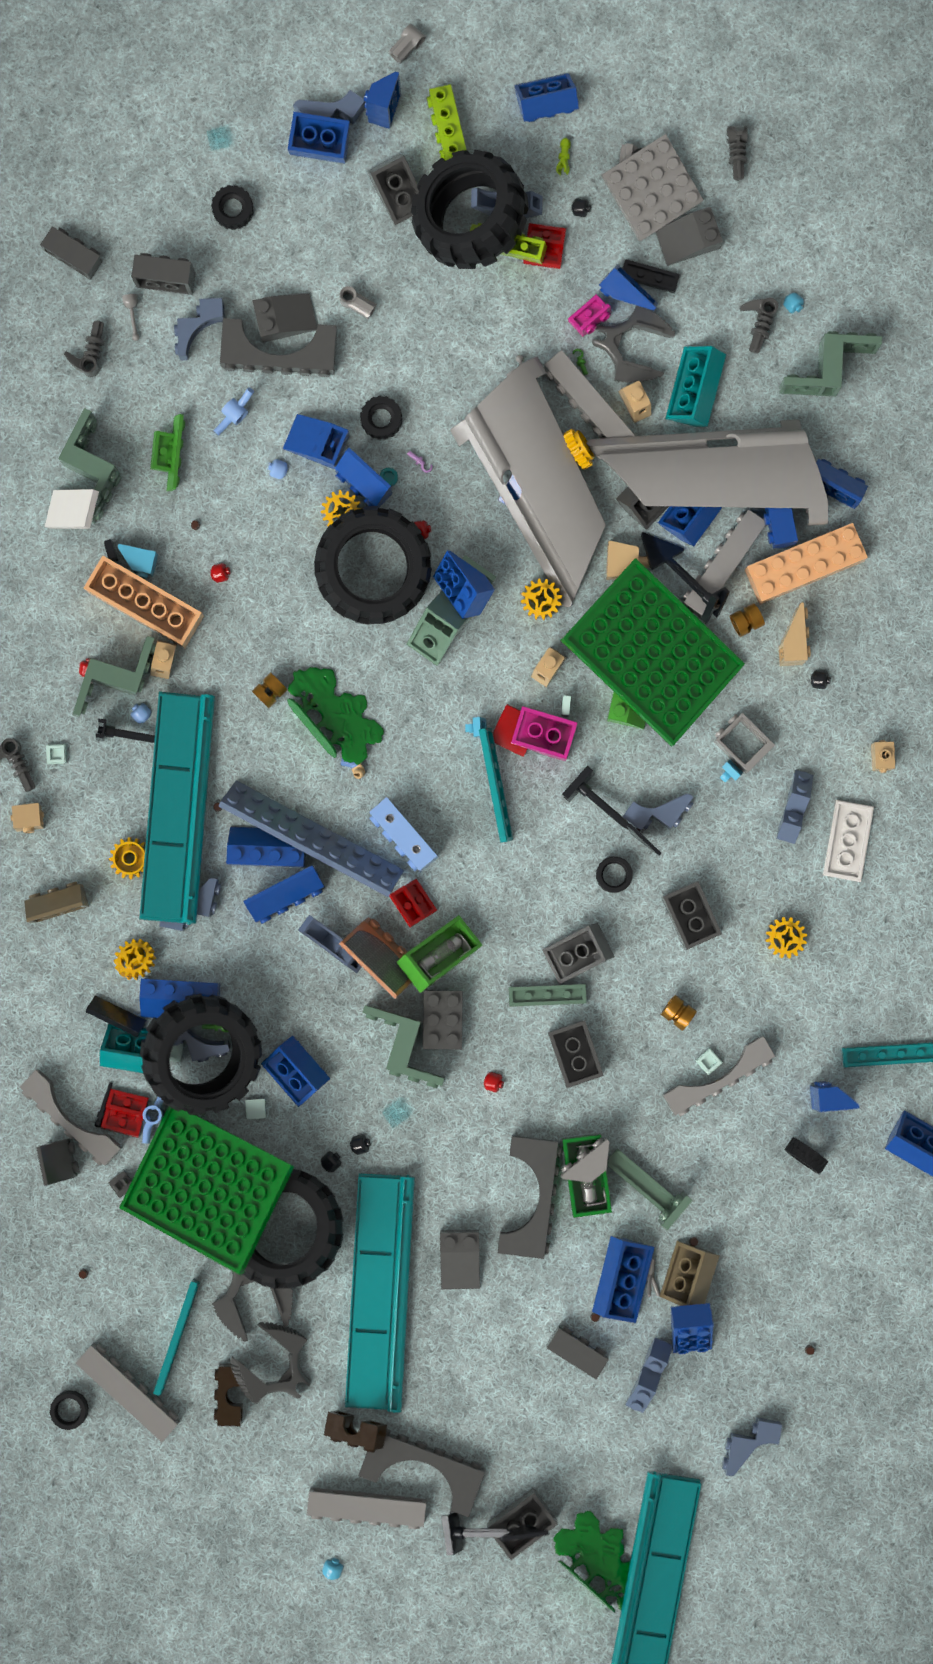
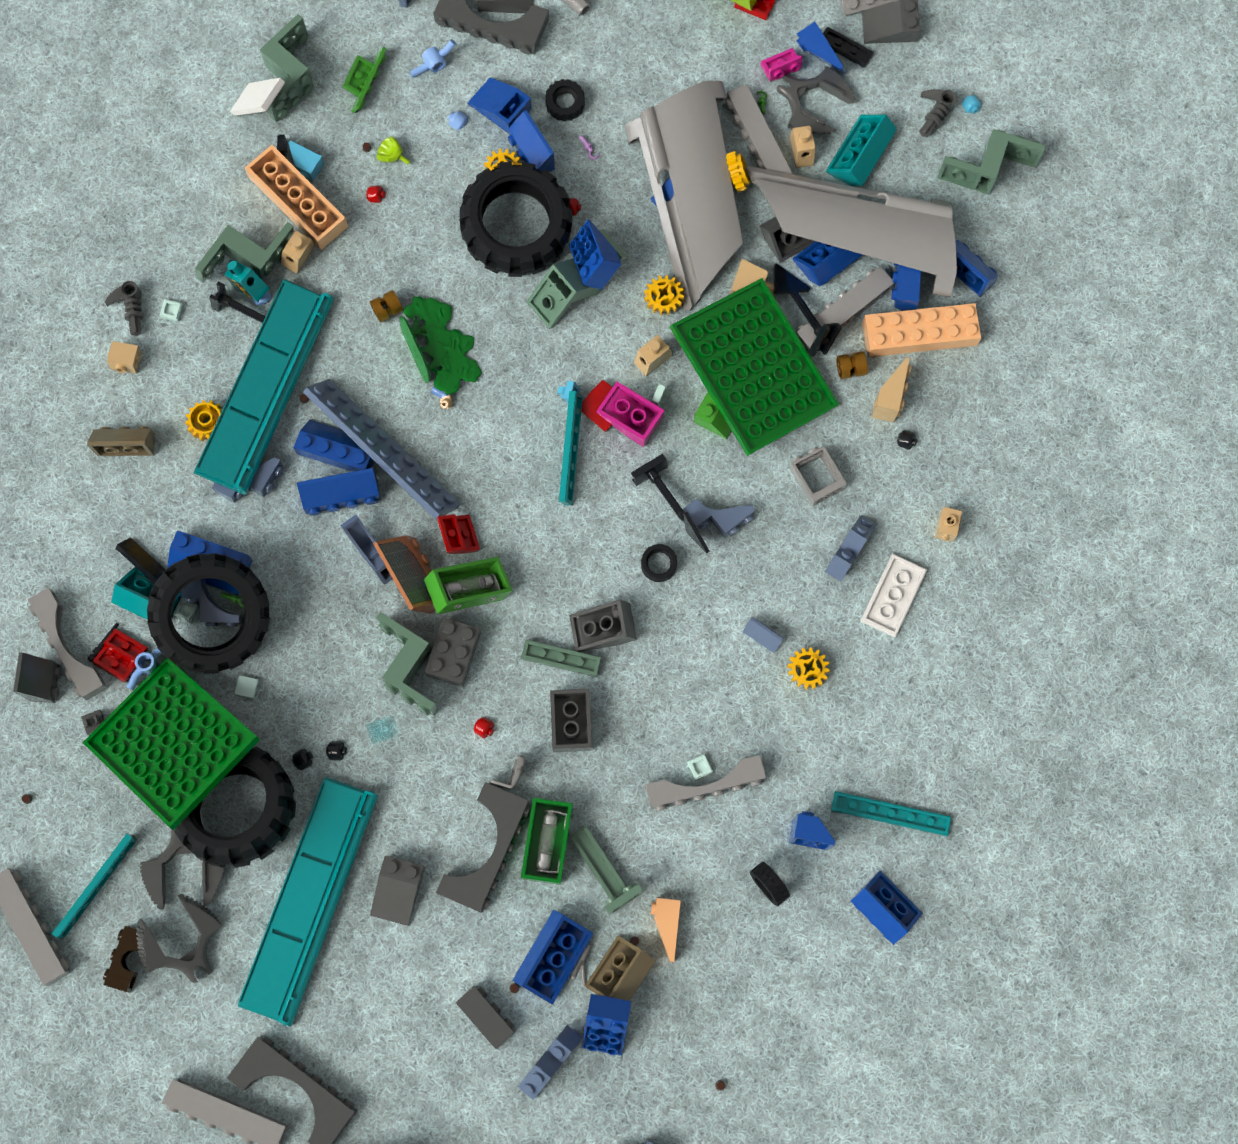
camera: 10 degrees right, 10 degrees down
(117, 704) = (239, 275): none -> teal torso
(134, 957) = (180, 513): yellow gear -> none
(221, 523) = (390, 151): none -> lime piece
(295, 1071) = (296, 660): blue slope -> none
(340, 1428) = (226, 1023): dark brown arch -> none
(389, 475) = (559, 152): teal tile -> none
(406, 838) = (469, 469): light blue piece -> none
(537, 1121) = (515, 775): none -> light grey piece
(589, 1164) = (551, 827): light grey slope -> none
(678, 1012) = (683, 710): pearl gold wheel -> none
(691, 915) = (722, 620): dark grey brick -> none
(718, 1213) = (666, 919): none -> light nougat slope
(731, 770) = (797, 498): medium azure tile -> none
(734, 917) = (763, 634): none -> sand blue slope

